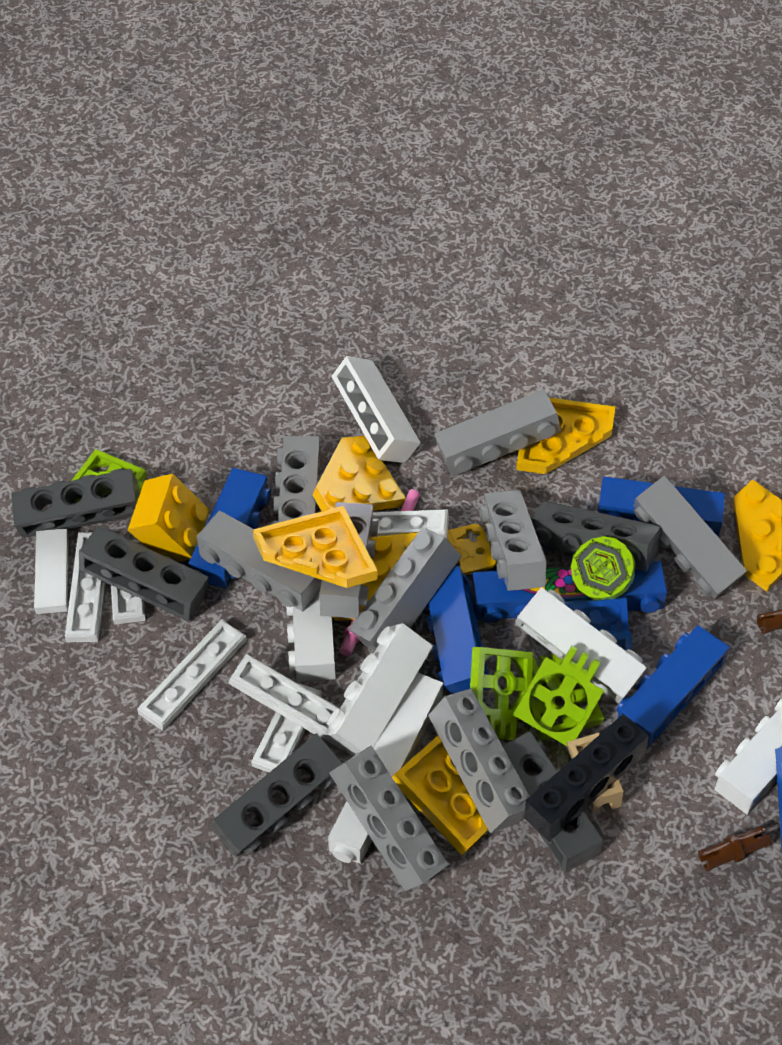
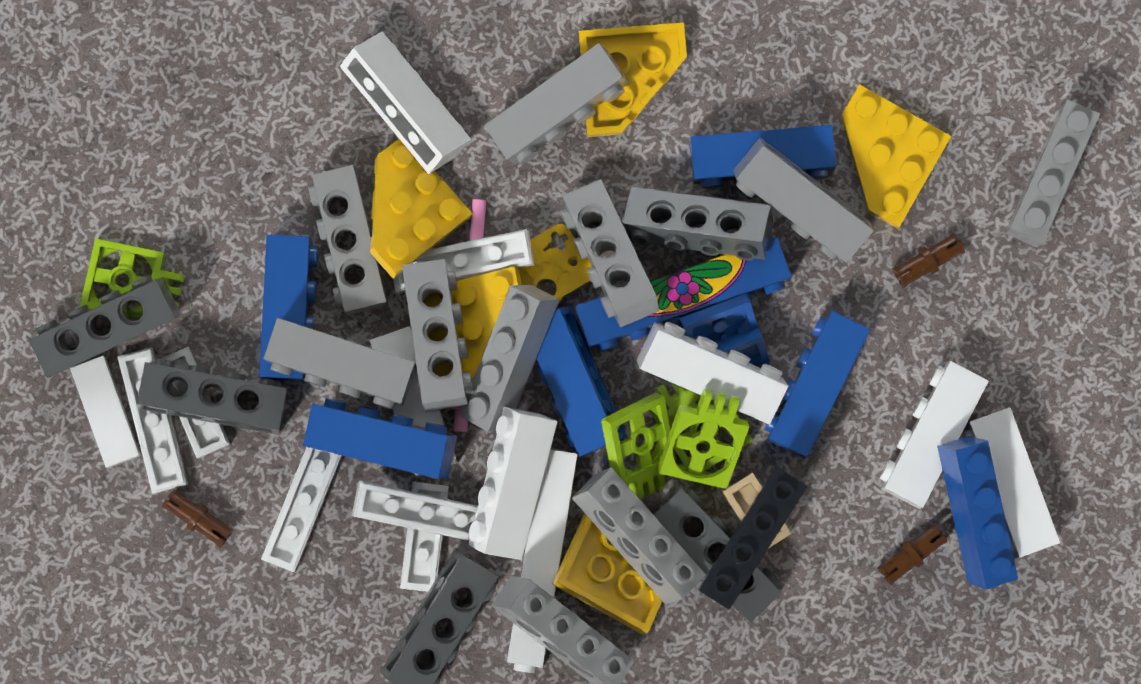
camera: 10 degrees left, 30 degrees up
(95, 665) = (197, 518): none -> reddish brown pin
(168, 517) = (219, 327): yellow brick -> none
(275, 626) = (379, 439): none -> blue brick
(318, 546) = (405, 347): yellow plate -> none
(603, 568) = (718, 277): tile -> none

